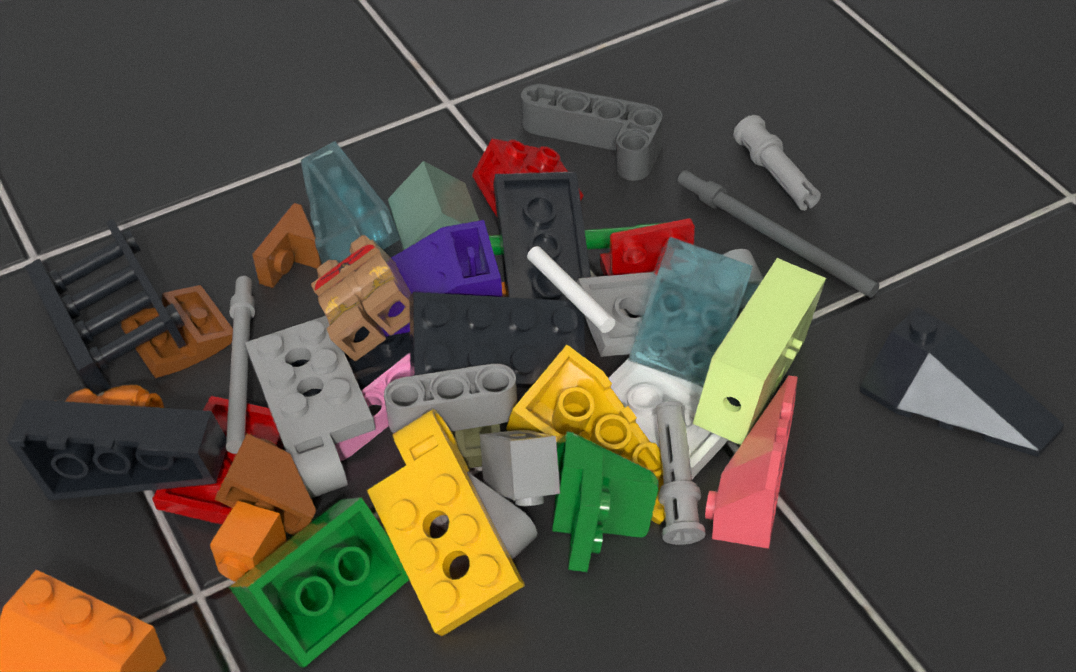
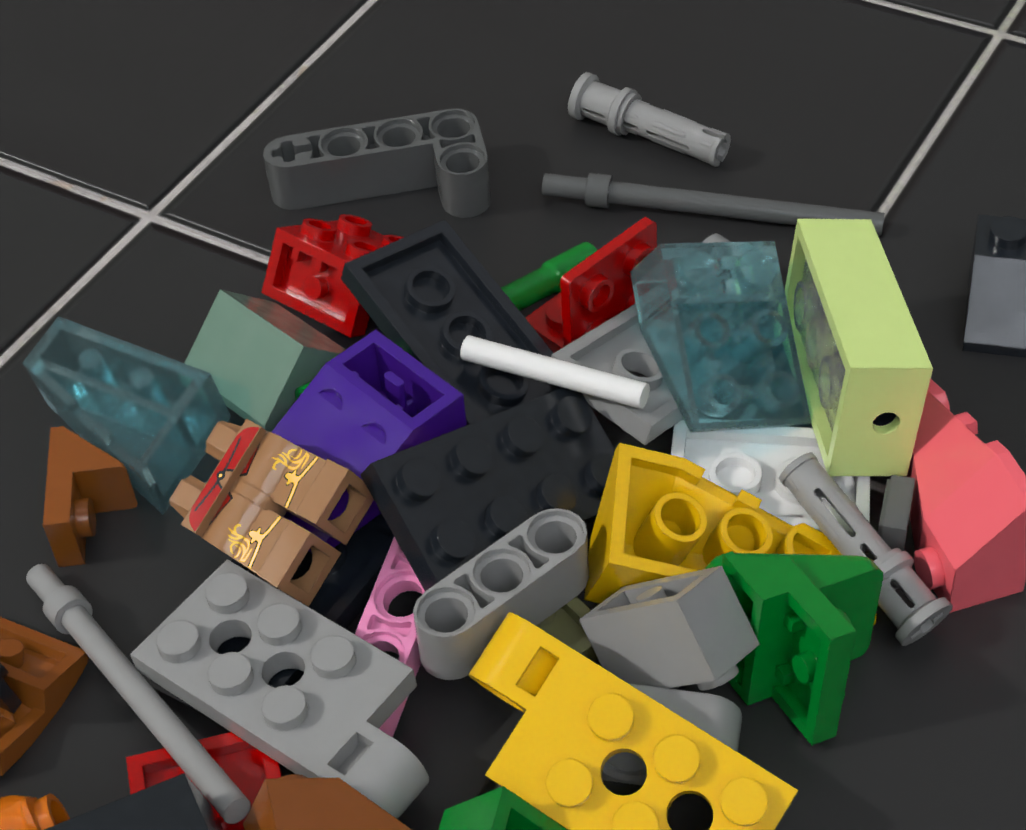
camera: 30 degrees left, 0 degrees up
(709, 468) = (896, 511): none -> dark grey tile

